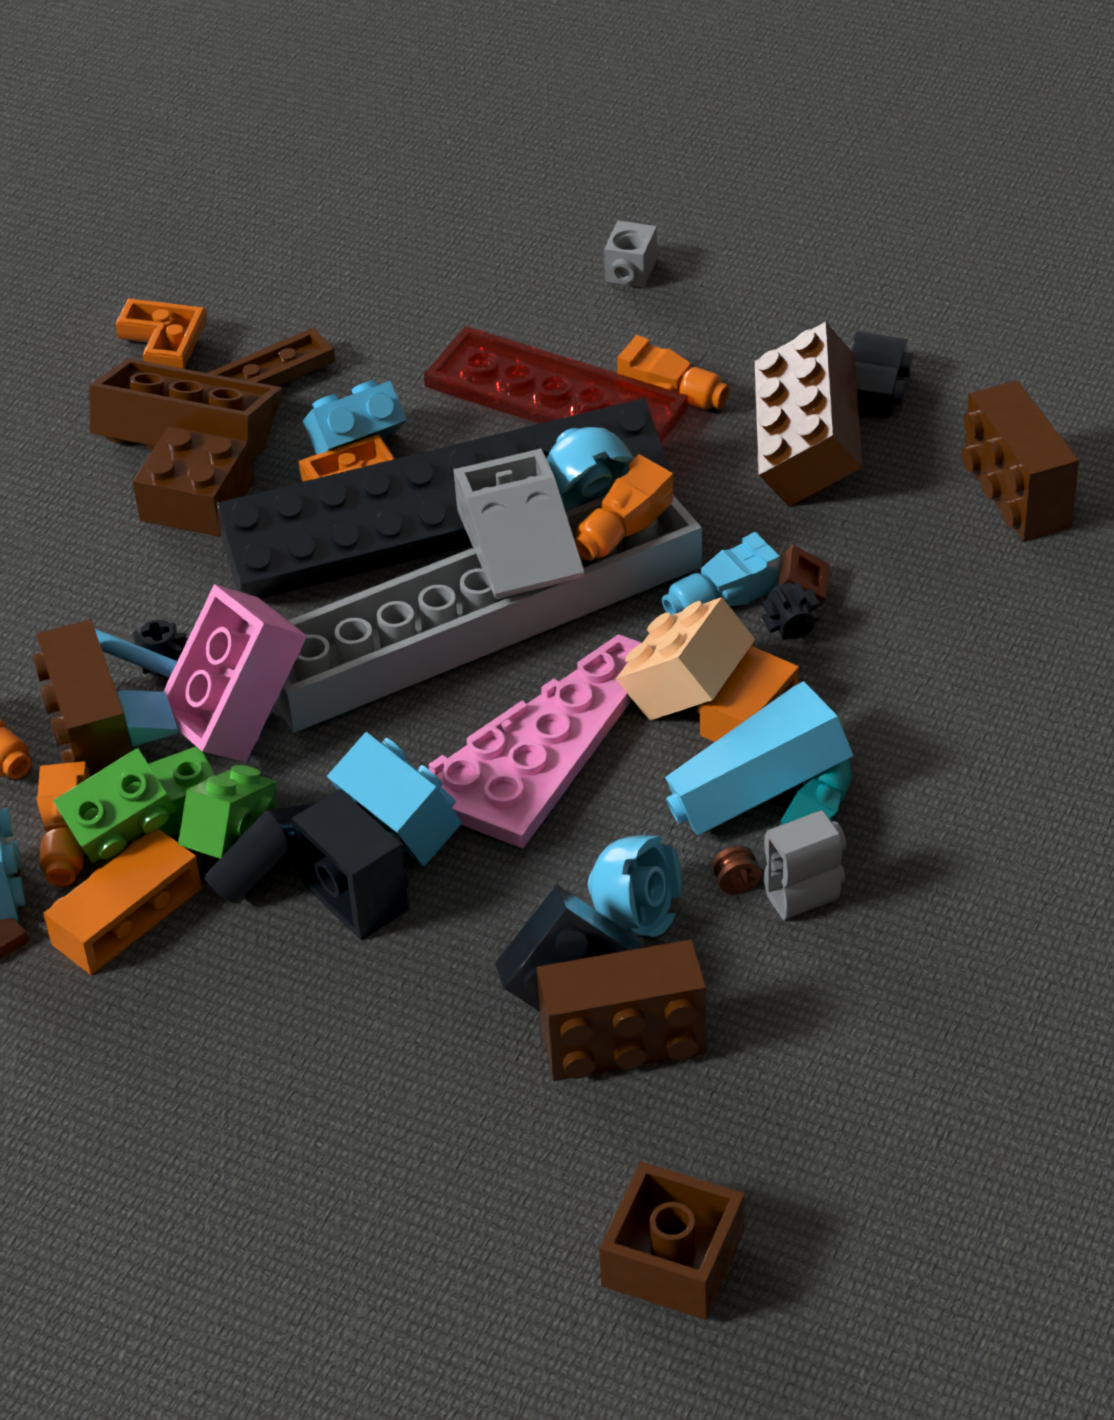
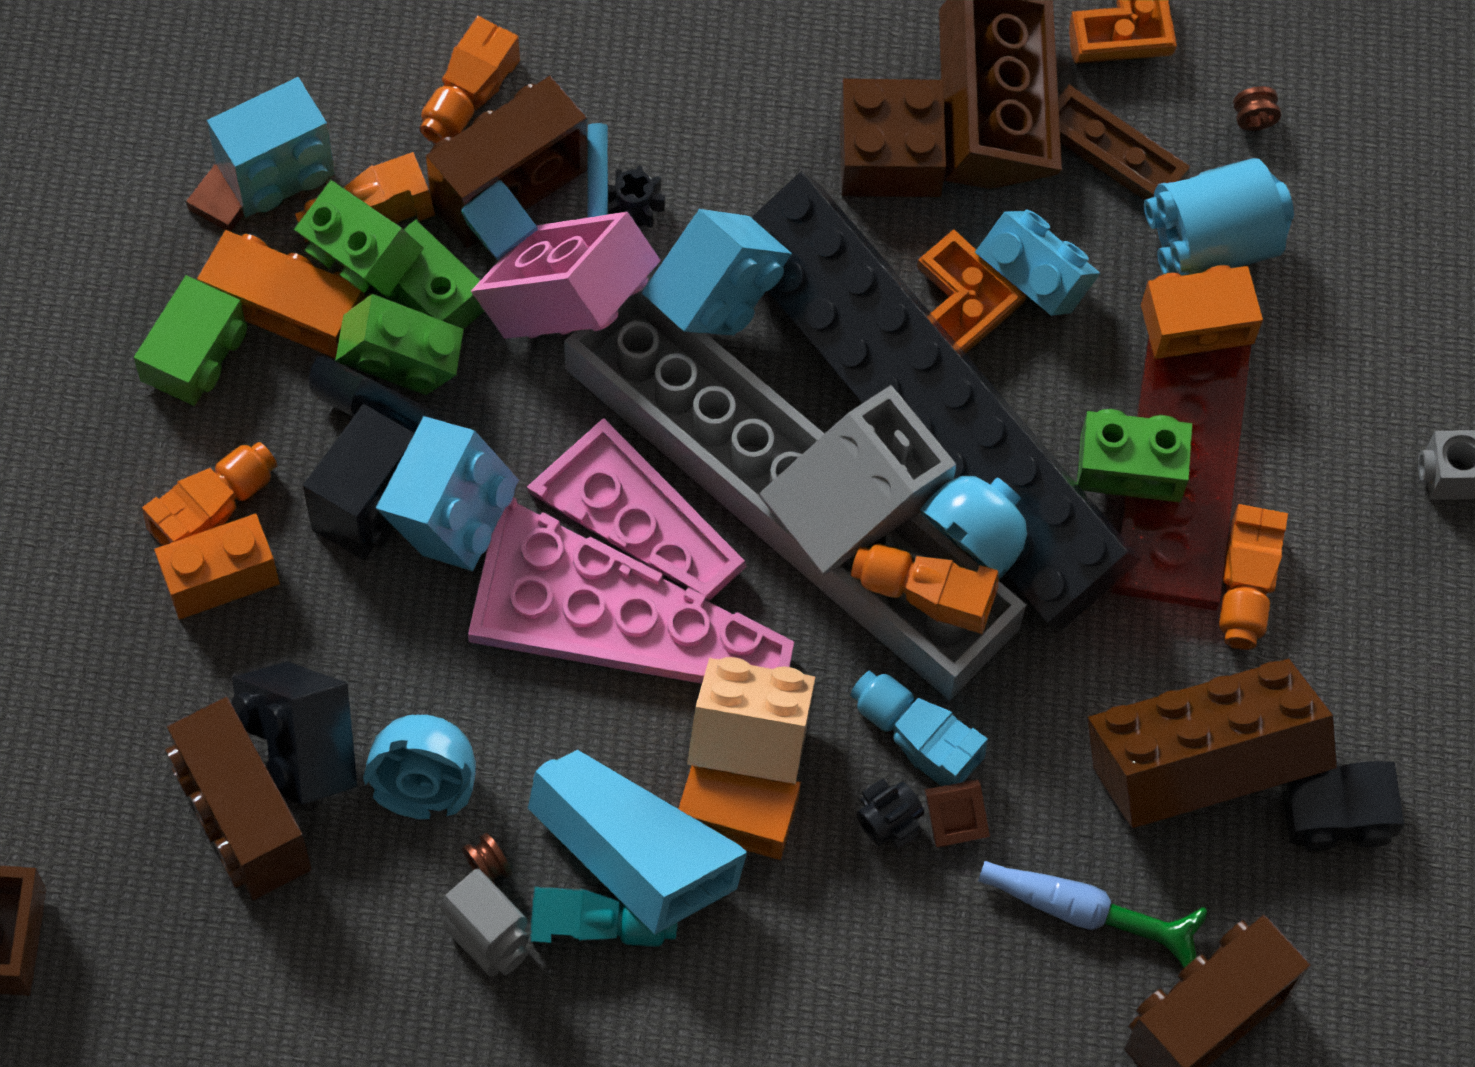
camera: 65 degrees right, 20 degrees up
(139, 969) = (191, 341): none -> bright green brick
(281, 286) = (1257, 108): none -> copper bush
(283, 568) = (717, 273): none -> medium azure brick
(306, 996) = (209, 496): none -> orange piece
(373, 315) = (1220, 218): none -> medium azure cylinder
(377, 996) = (217, 566): none -> orange brick
(444, 711) = (632, 506): none -> bright pink wing
(447, 337) = (1201, 311): none -> orange brick
(553, 390) = (1134, 455): none -> bright green brick
(909, 523) = (1092, 908): none -> light blue piece

